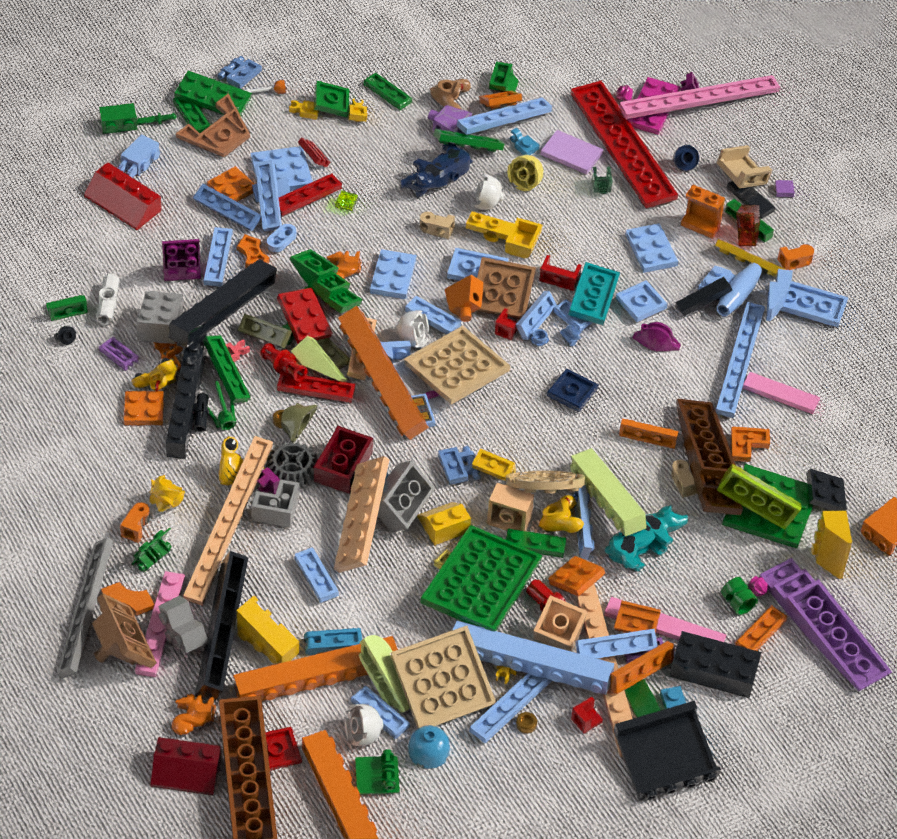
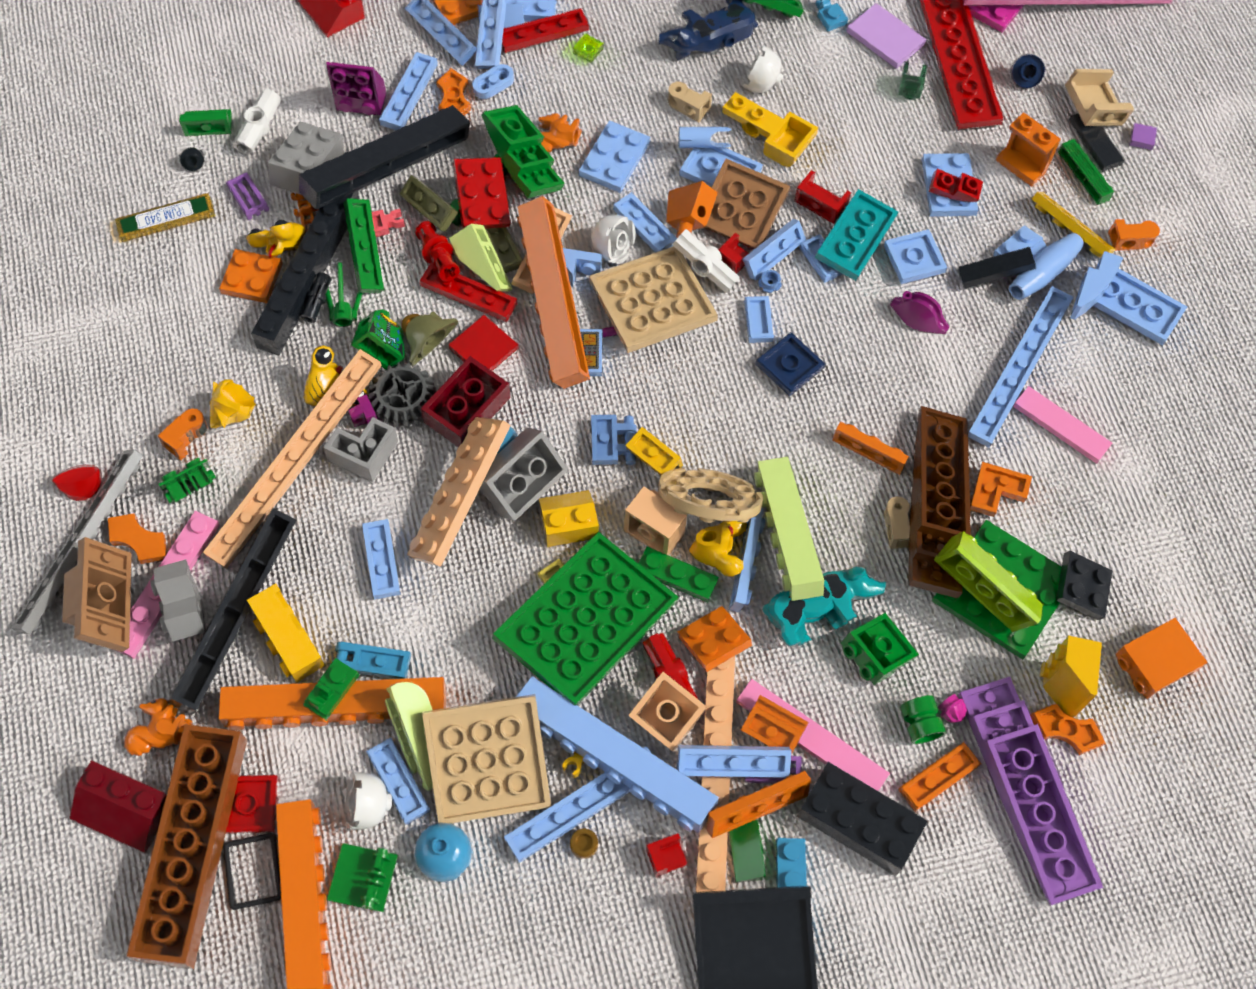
camera: 15 degrees right, 15 degrees up
(60, 380) = (165, 217): none -> tile
(69, 570) = (79, 482): none -> red piece
(260, 425) = (380, 338): none -> green torso
(289, 812) = (232, 905): none -> black piece
(315, 658) = (331, 689): none -> green plate
(339, 415) = (484, 343): none -> red tile
(455, 247) = (700, 137): none -> light blue piece
(489, 331) = (706, 260): none -> white piece
(525, 172) = (818, 52): light yellow cylinder -> none
(539, 365) = (758, 319): none -> light blue tile
(571, 334) = (812, 284): medium blue plate -> none
(658, 248) = (958, 188): none -> red slope
(694, 559) = (878, 649): none -> green plate
(748, 225) = (1082, 179): clear red slope -> none
(849, 585) = (1080, 734): none -> orange tile

